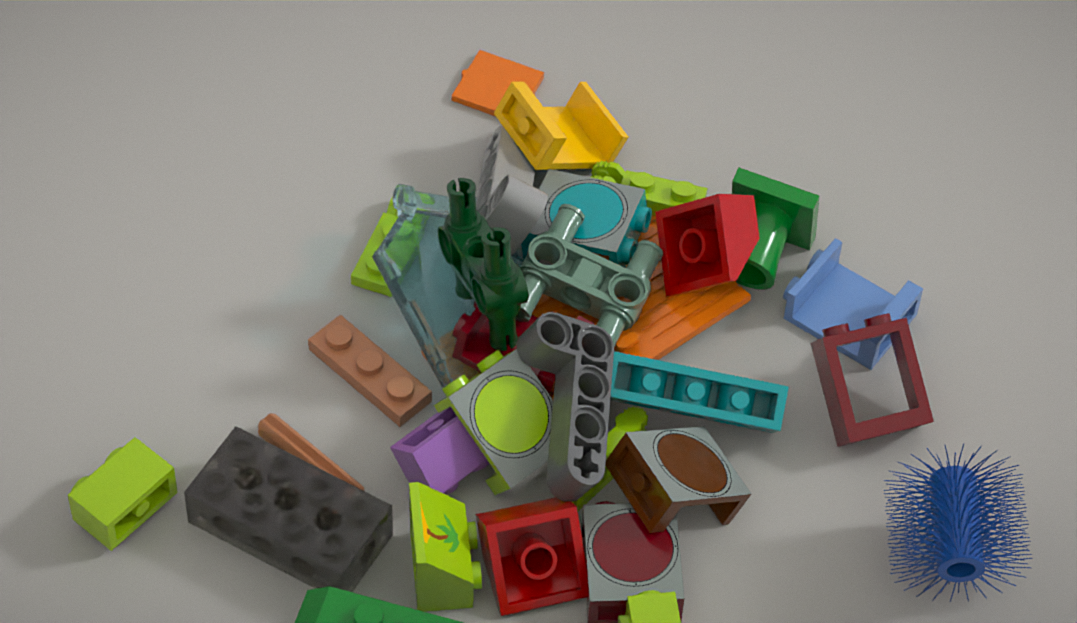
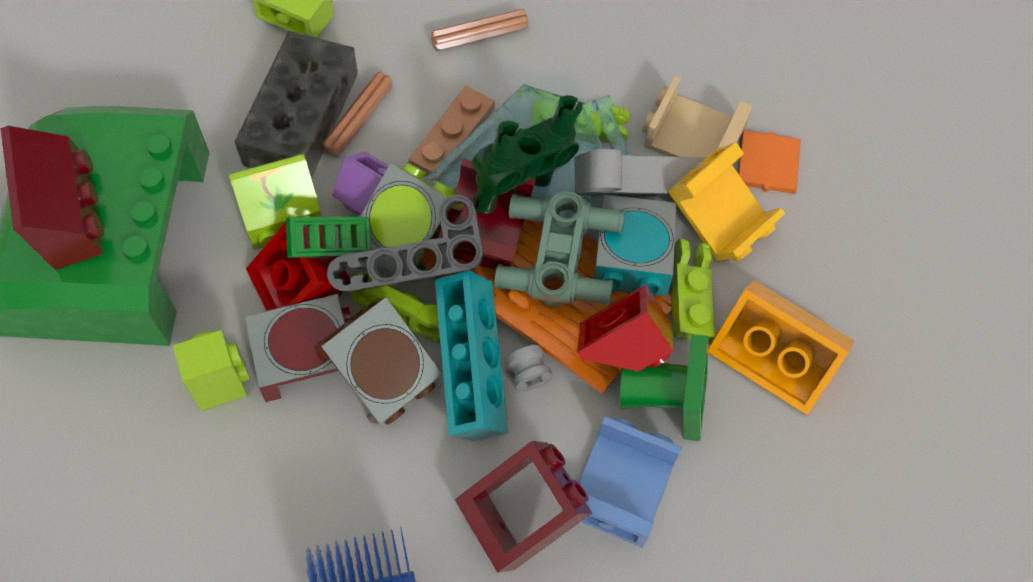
camera: 75 degrees right, 10 degrees up
(221, 310) = (479, 29): none -> nougat axle
(443, 134) = (691, 128): none -> tan panel
(523, 481) = (352, 236): none -> green slope
(708, 352) = (528, 367): none -> light grey wheel
(737, 126) = (780, 346): none -> light orange slope

